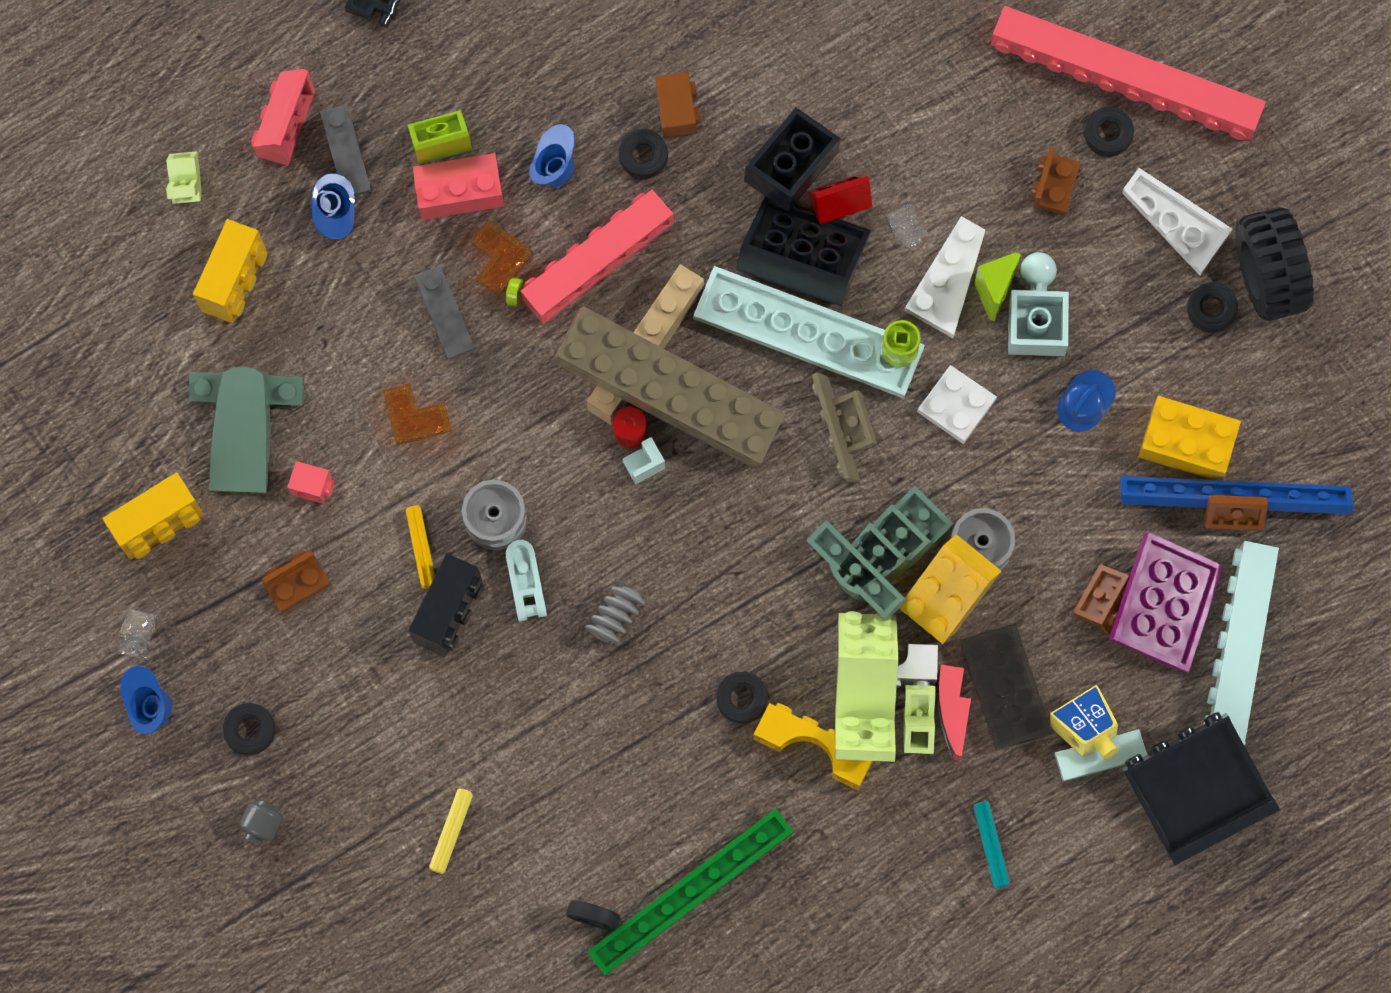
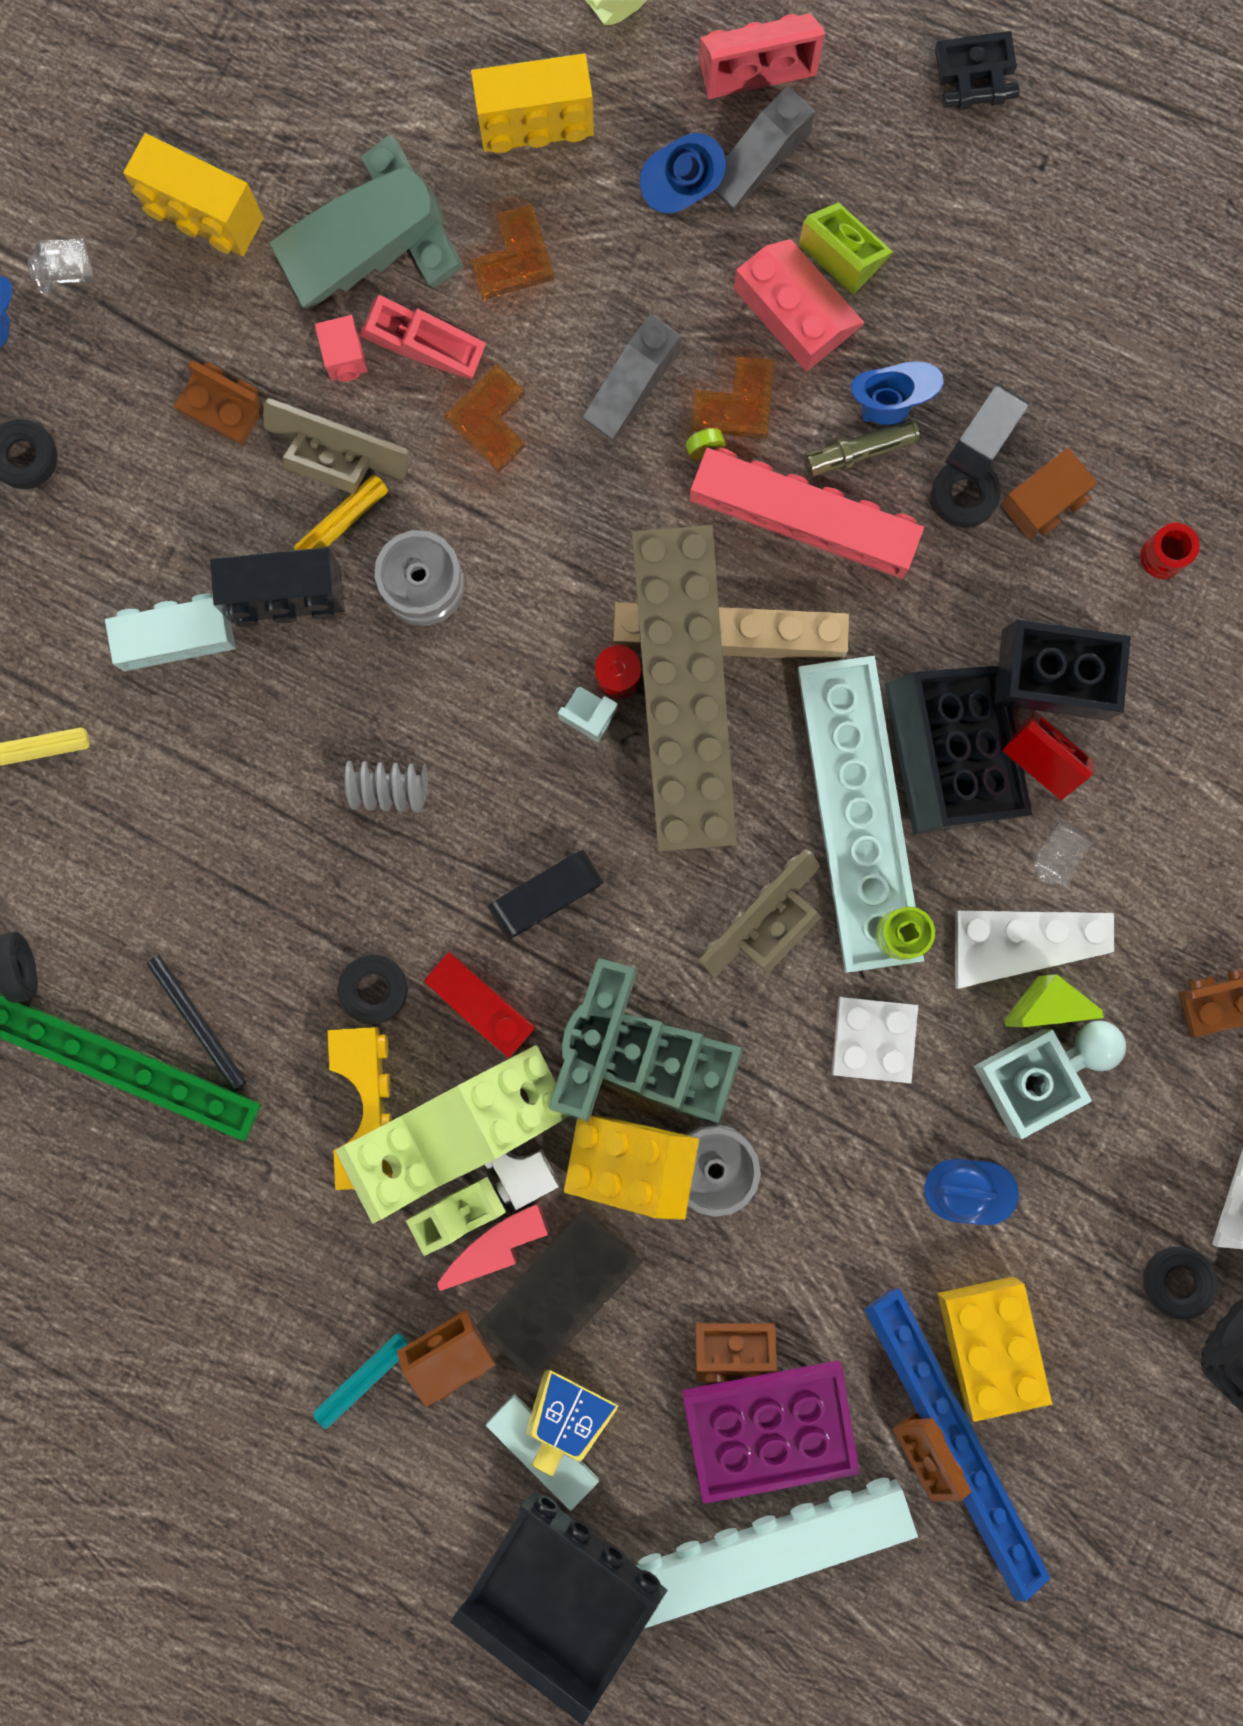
camera: 60 degrees right, 10 degrees up
(322, 335) = (521, 263): none -> clear orange plate
(334, 429) = (422, 337): none -> coral slope
(373, 526) = (332, 450): none -> dark tan bracket
(430, 695) = (168, 633): none -> light aqua brick
(525, 579) = (368, 659): light aqua plate -> none
(573, 211) = (850, 451): none -> olive pin
(615, 118) = (987, 432): none -> beam
(697, 823) = (196, 1023): none -> black bar
(745, 553) = (545, 894): none -> black beam
(755, 55) = (1169, 550): none -> red piece
(793, 633) = (480, 1005): none -> red slope
(1006, 777) = (445, 1358): none -> dark orange brick

